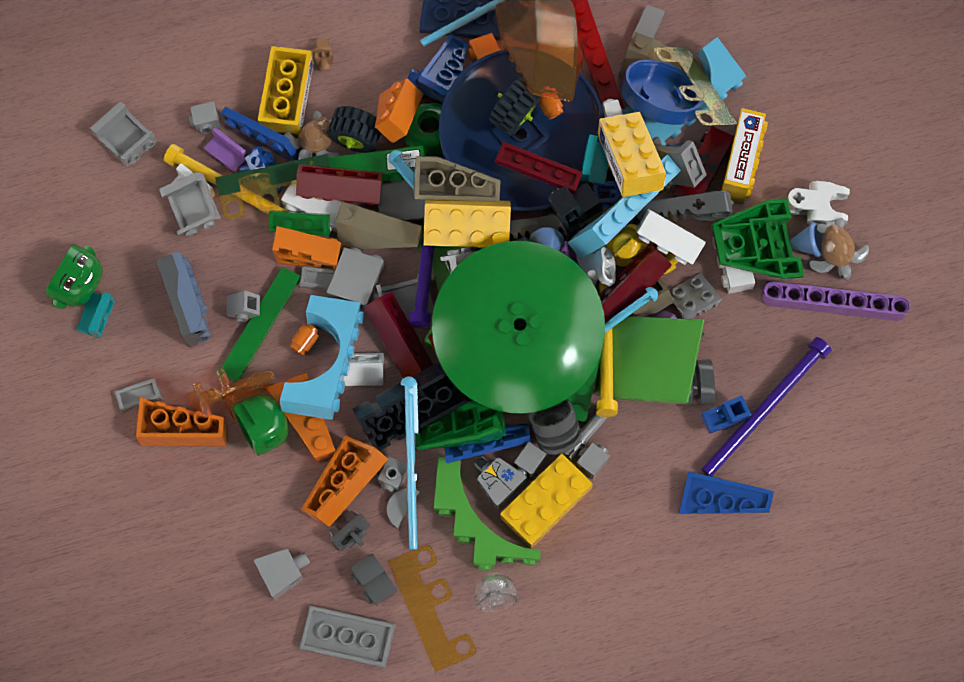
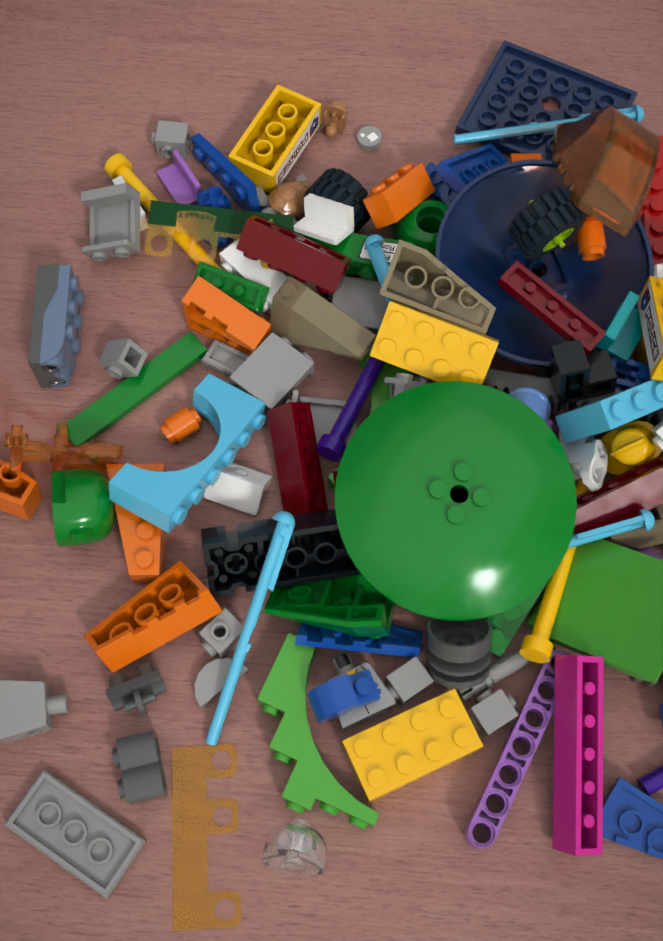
camera: 15 degrees right, 5 degrees down
(123, 134) = (72, 127): light grey panel -> none
(352, 149) = (326, 219): none -> white panel
(355, 61) = (369, 138): none -> light grey tile
(489, 484) = (342, 695): none -> blue brick
(612, 485) = (510, 759): none -> medium lavender beam
(655, 465) = (578, 755): none -> dark pink brick

